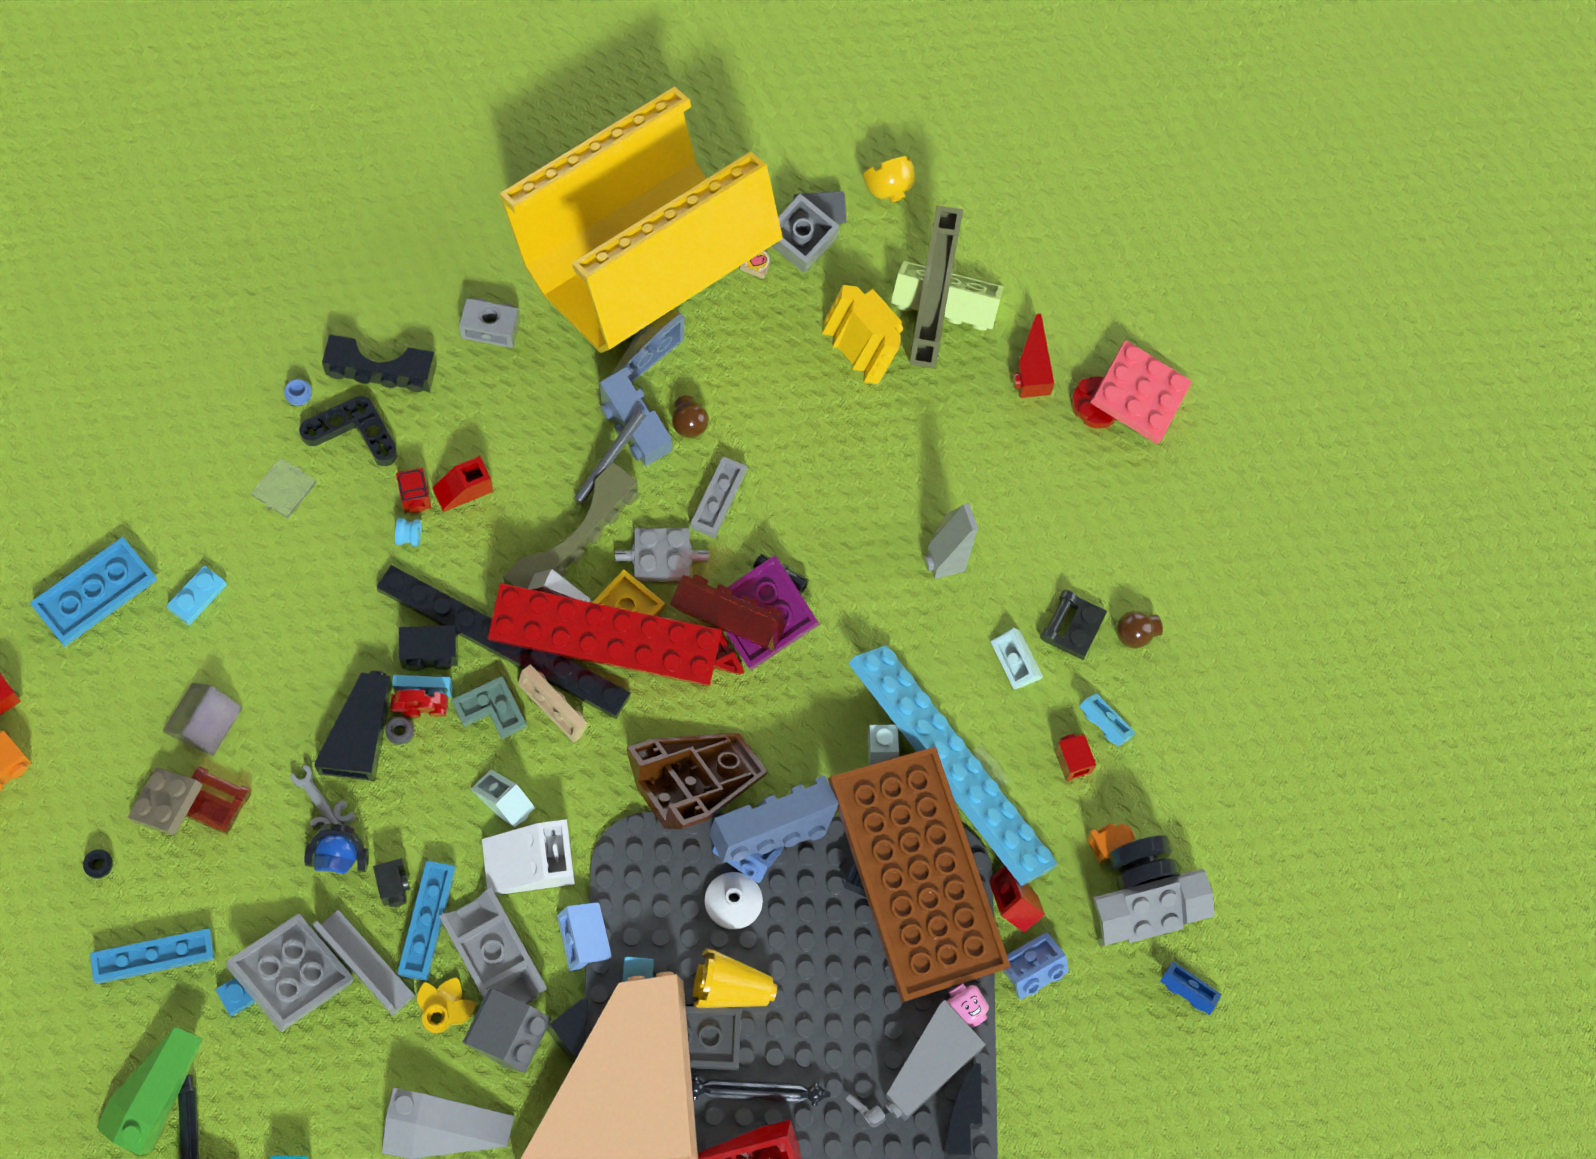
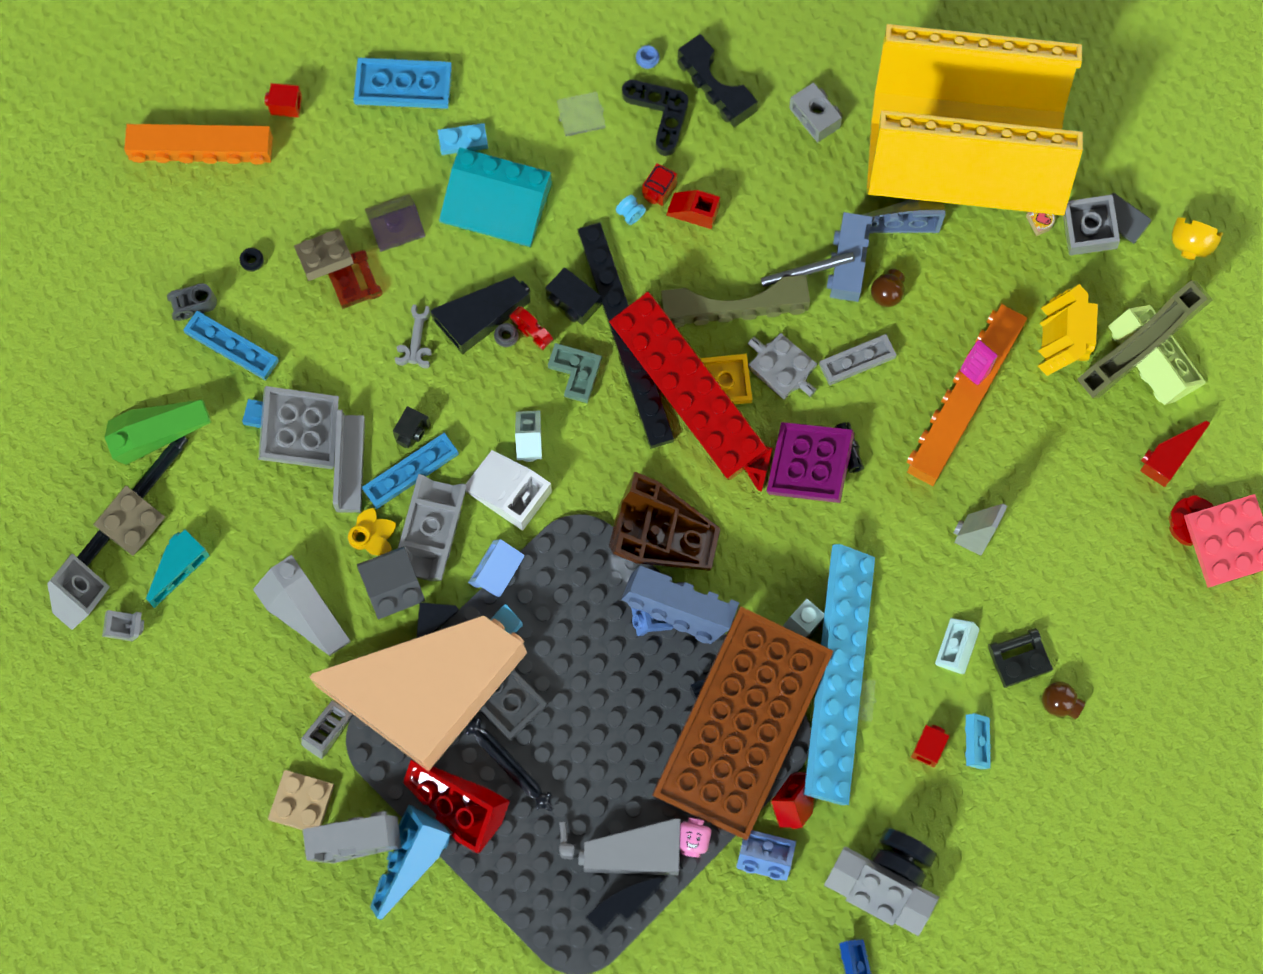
camera: 50 degrees right, 5 degrees up
(74, 951) = (189, 301): none -> dark grey piece
(276, 620) = (495, 197): none -> teal slope
(336, 850) = (395, 376): cap -> none
(426, 683) = (546, 318): medium azure plate -> none
(552, 703) = (617, 401): tan plate -> none
(553, 583) = (685, 322): light grey slope -> none
(728, 612) = (785, 442): clear red brick -> none
(730, 983) = (555, 683): yellow cone -> none
(733, 914) = (610, 644): white dish -> none
(825, 413) = (978, 362): none -> dark pink slope
(833, 451) = (963, 400): none -> orange brick
(1109, 839) = (899, 820): orange brick -> none

